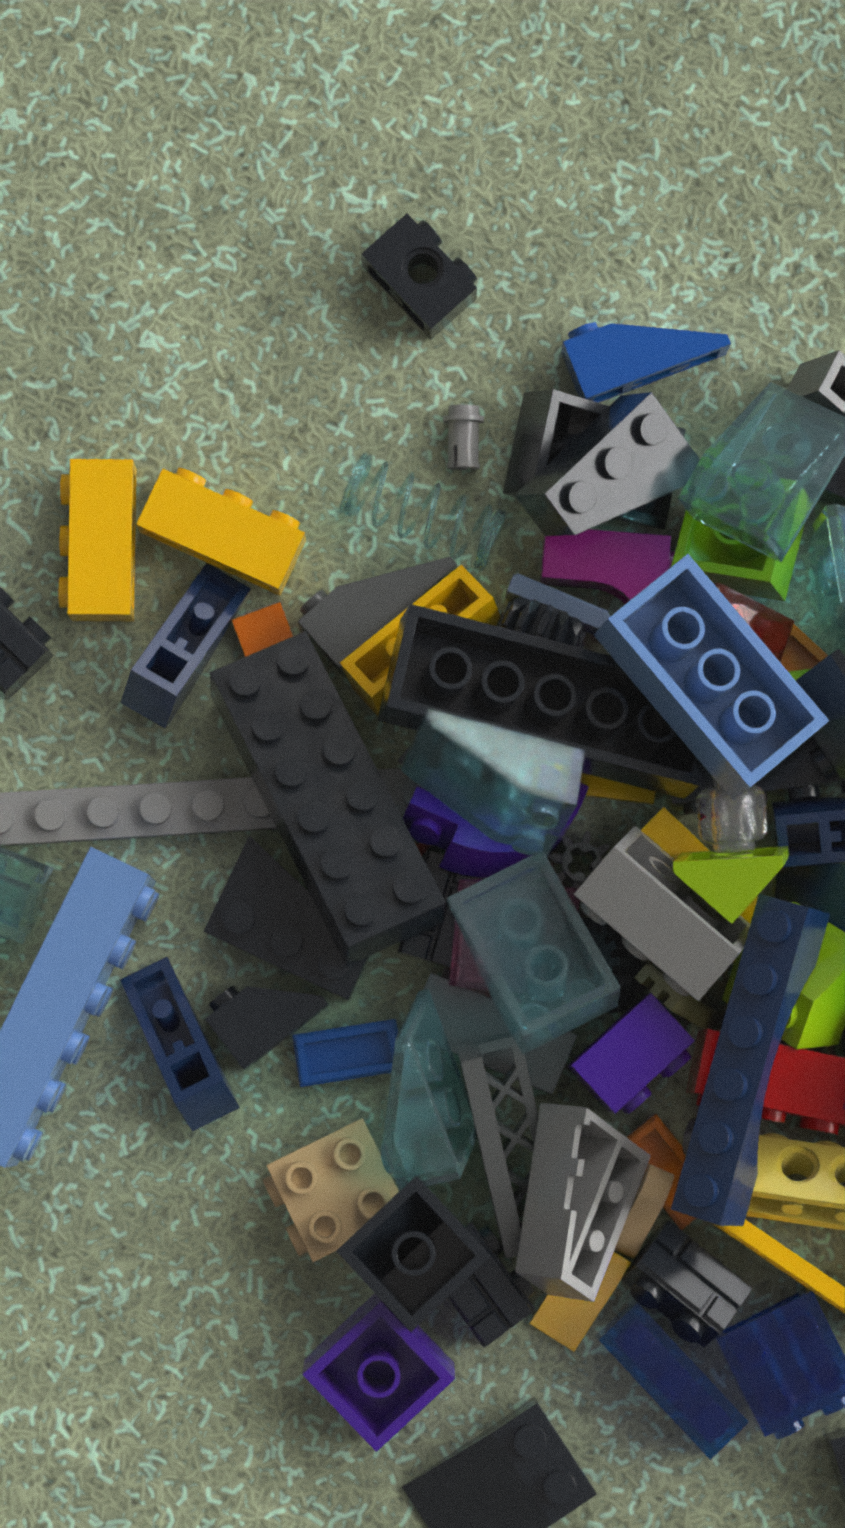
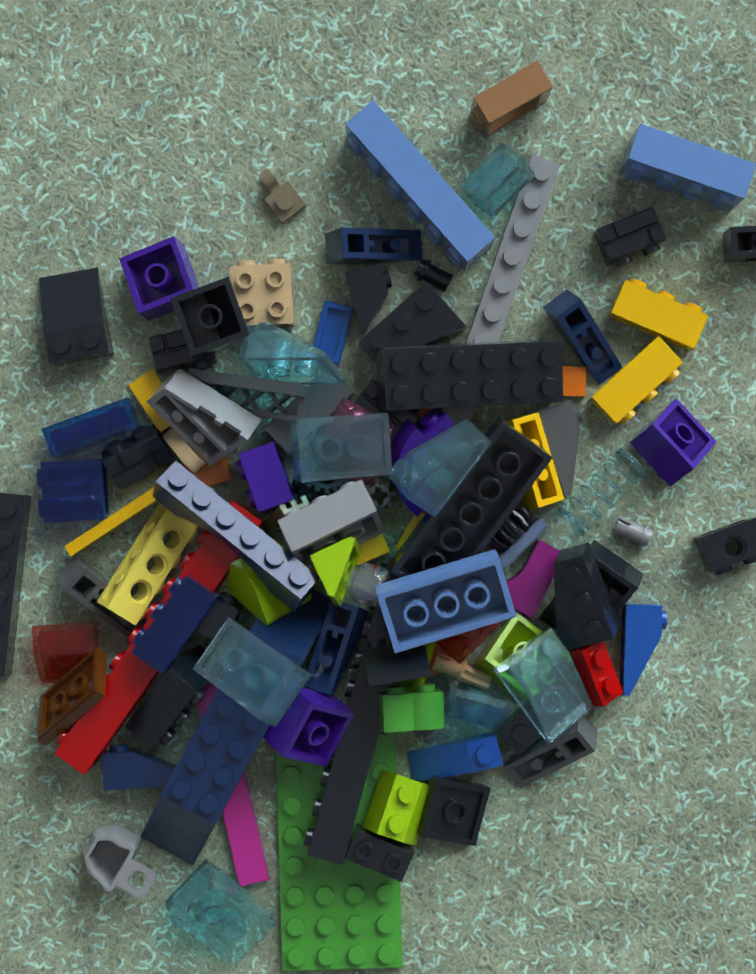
camera: 115 degrees right, 5 degrees up
(163, 1226) = (282, 199): none -> dark tan plate
(185, 927) = (433, 275): none -> black pin
(295, 431) = (673, 442): none -> dark purple slope
(715, 398) = (597, 673): none -> red brick
(804, 609) = (462, 671): none -> tan axle

